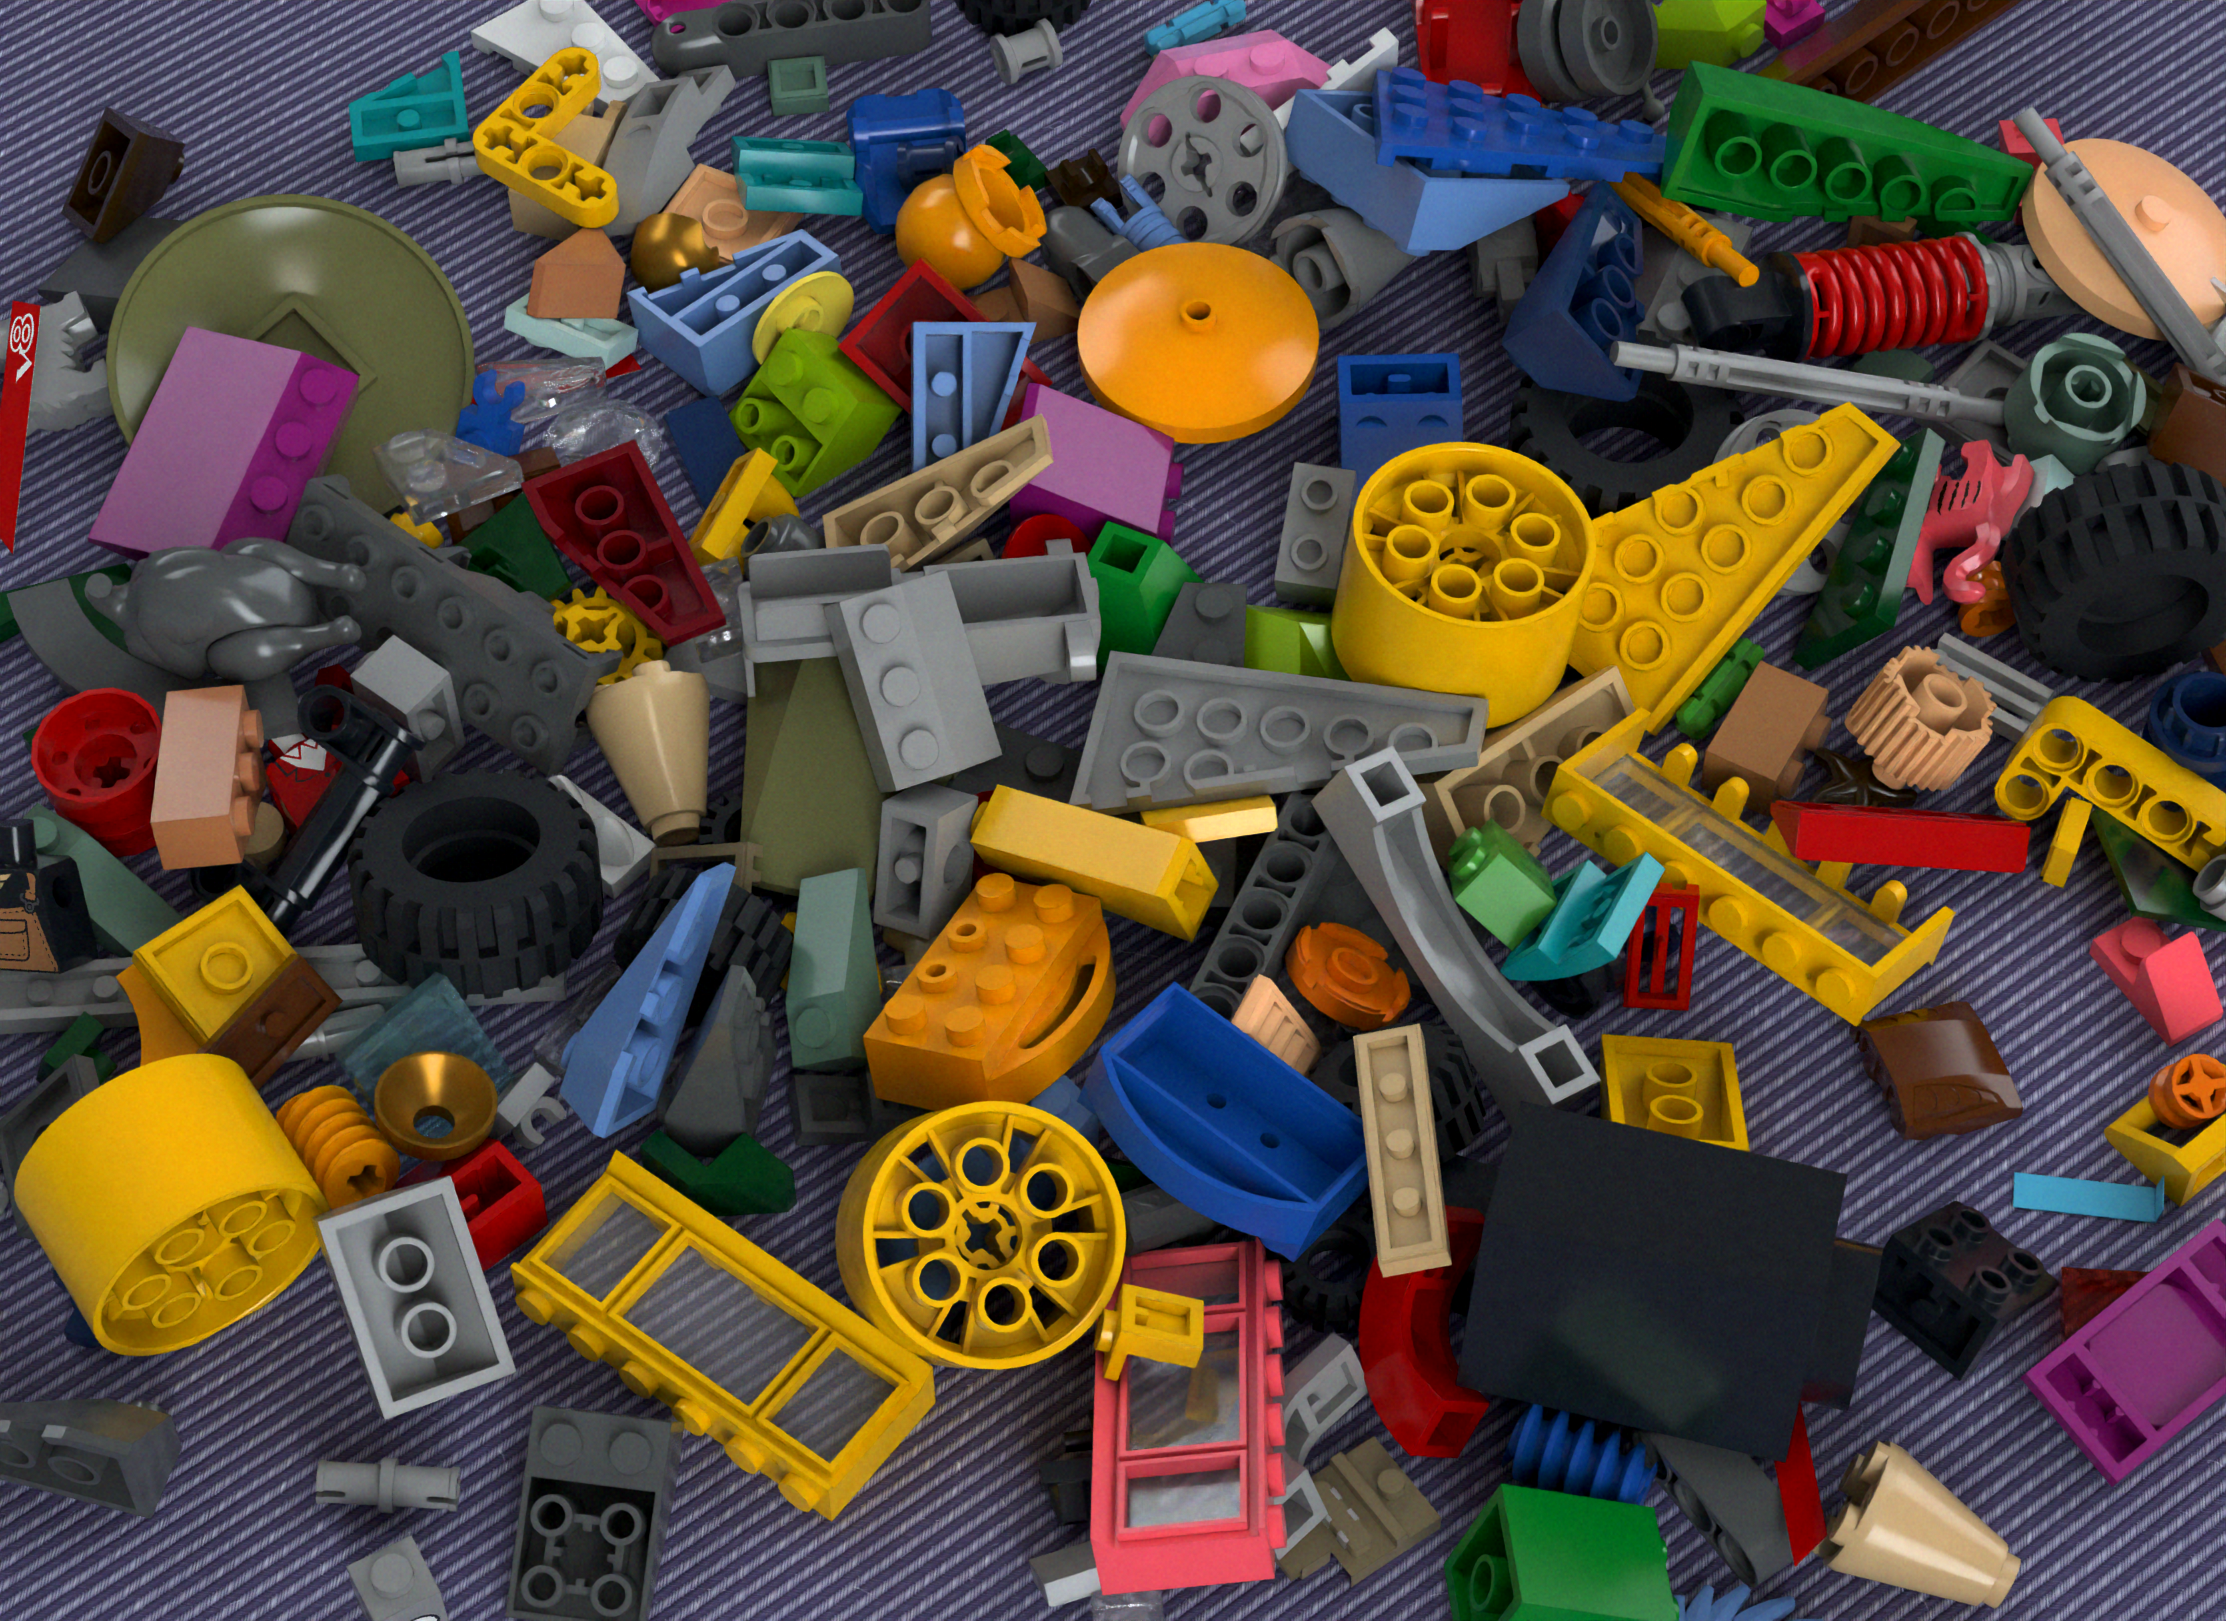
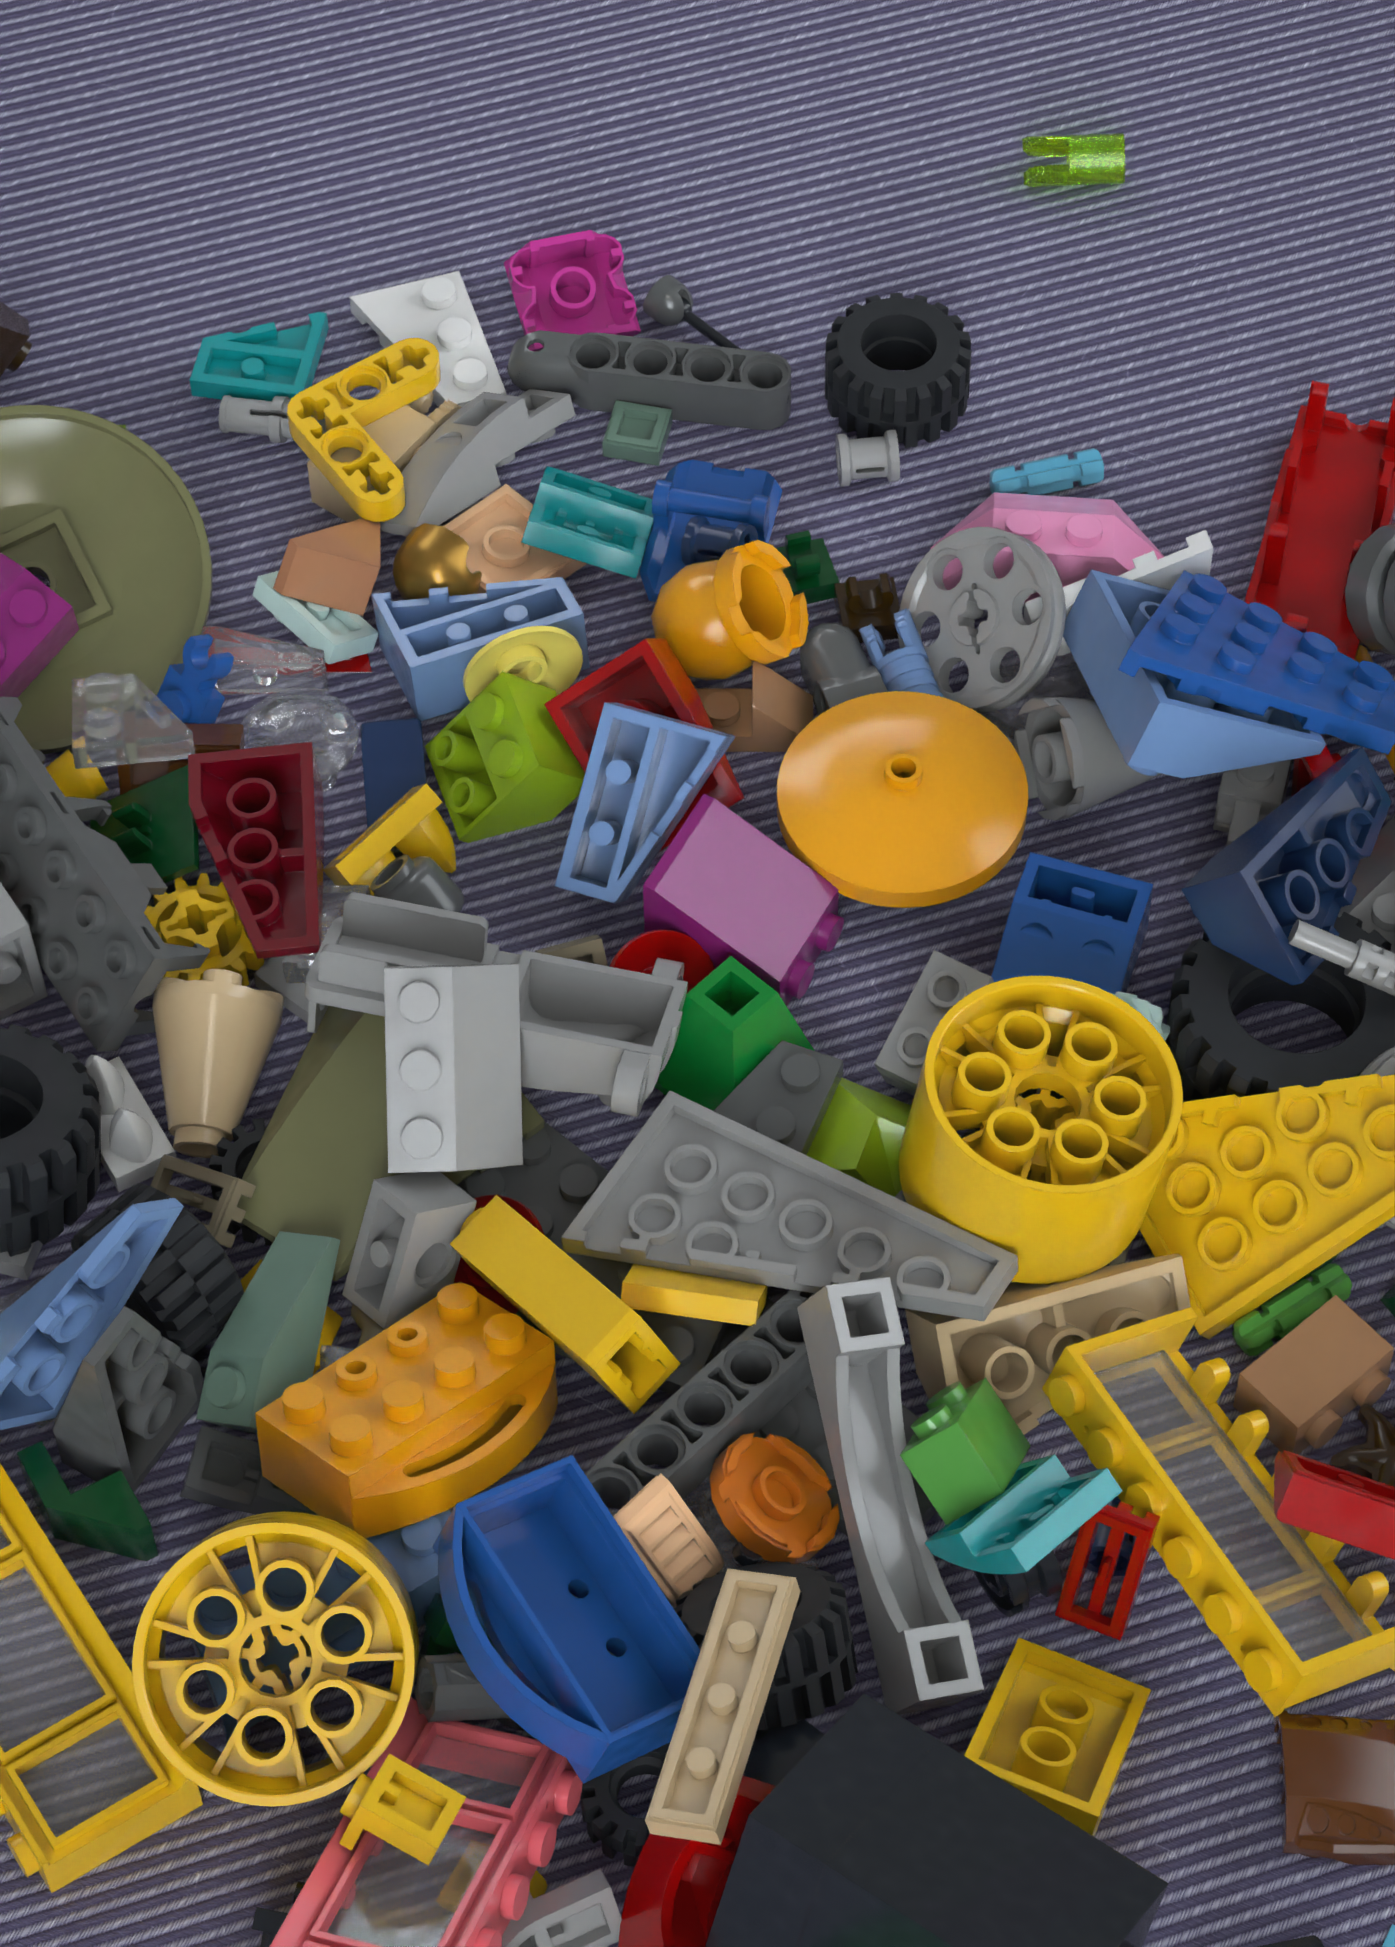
camera: 20 degrees right, 0 degrees up
(945, 501) = (568, 892): tan wedge -> none

